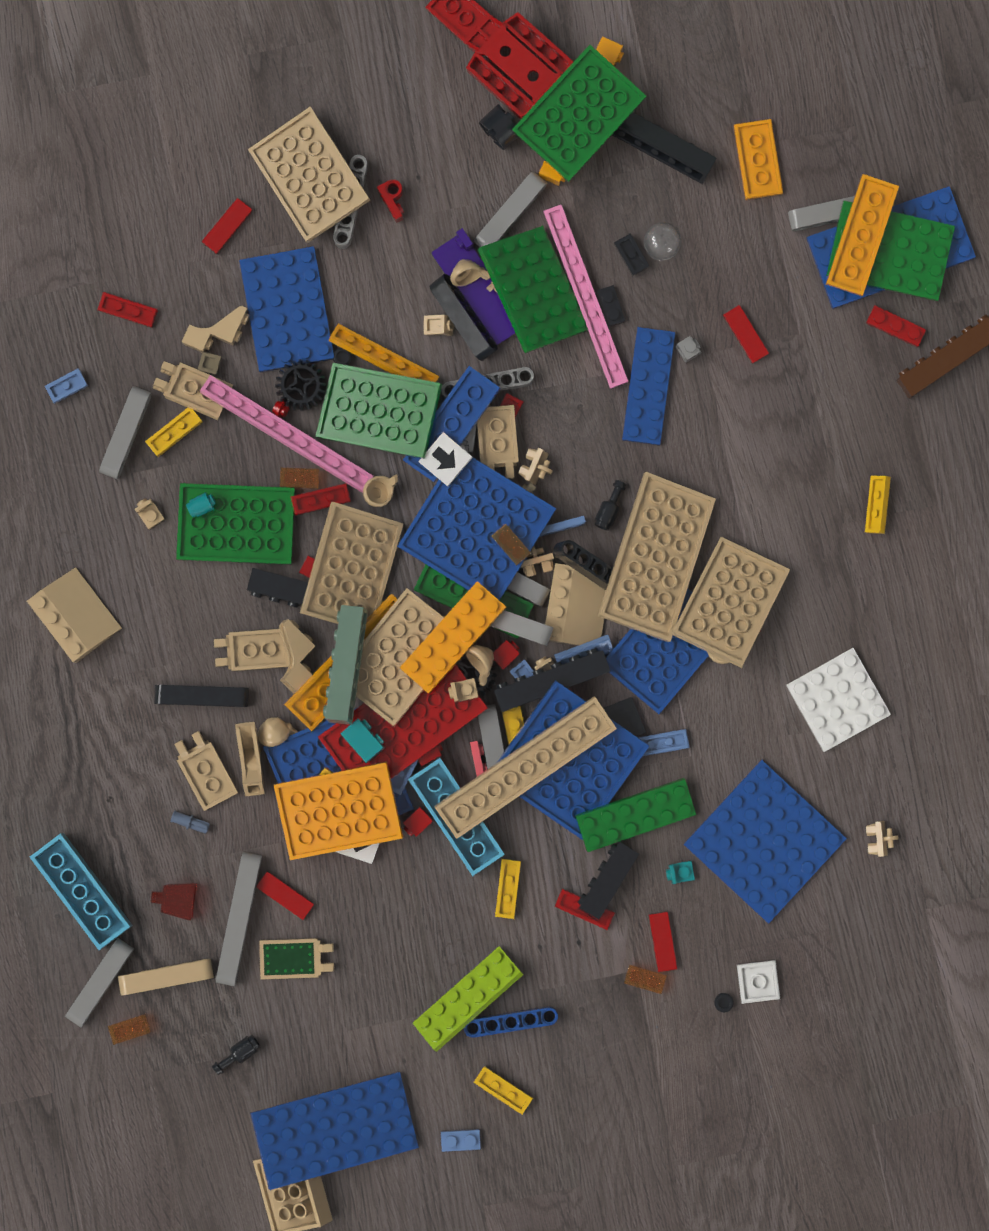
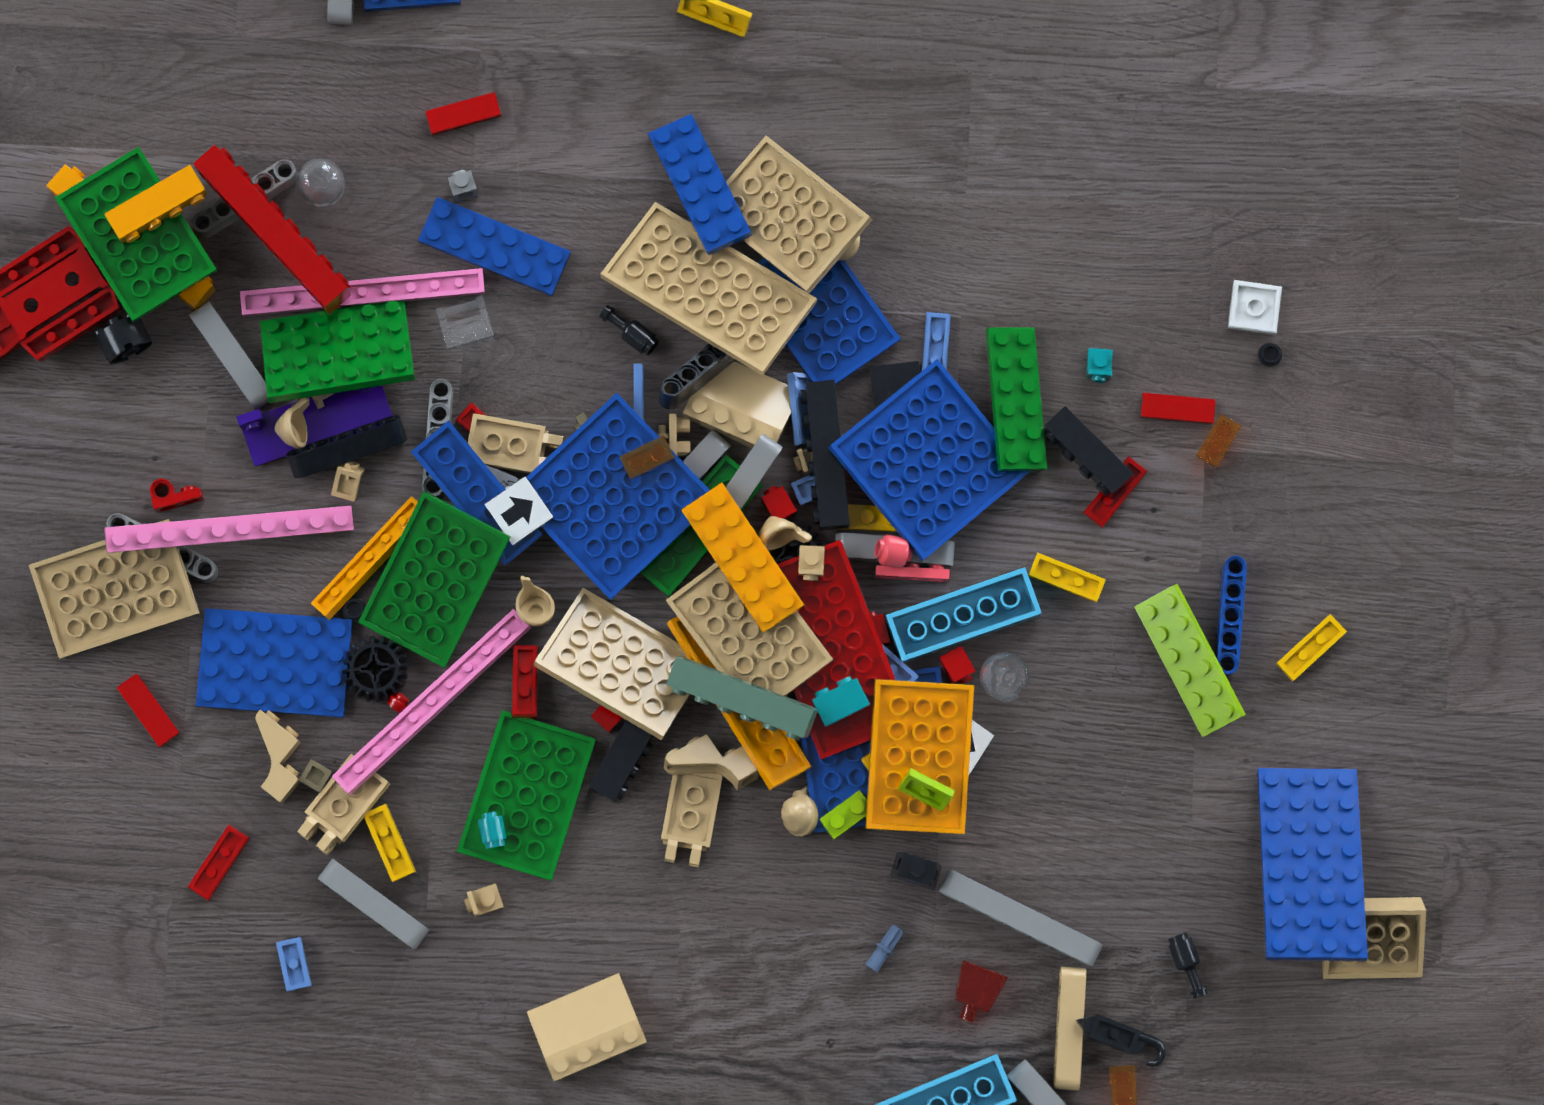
camera: 80 degrees left, 5 degrees down
(168, 1017) = (1121, 1036): none -> black plate
(201, 695) = (730, 893): black beam -> none
(205, 772) = (827, 913): tan tile -> none
(250, 758) = (826, 851): tan arch -> none
(253, 830) = (916, 870): none -> black torso
(281, 766) = (845, 815): none -> lime plate
(285, 895) = (1005, 854): red tile -> none
(293, 958) = (1086, 863): tile -> none
(299, 478) = (491, 701): clear orange plate -> none
(312, 822) = (926, 789): none -> lime plate
(375, 246) = (228, 529): none -> bright pink plate
(417, 859) = (1004, 676): none -> clear cylinder
(460, 1140) = (1359, 716): medium blue plate -> none
(489, 750) = (893, 551): none -> coral head
(525, 767) = (926, 512): tan plate -> none
(538, 467) = (547, 401): tan hips -> none
(577, 382) = (468, 329): none -> clear plate
(603, 121) = (156, 204): none -> light orange brick
(610, 306) = (382, 265): black plate -> none
(611, 214) = (270, 227): none -> red brick
(629, 179) = (211, 212): none -> light grey beam
(631, 254) = (327, 223): black plate -> none
(666, 147) = (222, 128): black brick -> none
(737, 529) = (699, 184): none -> blue plate
(758, 159) = (252, 42): light orange tile -> none
(764, 841) = (1087, 255): blue plate -> none
(838, 699) = (938, 122): white plate -> none
(879, 830) = (1107, 116): tan hips -> none

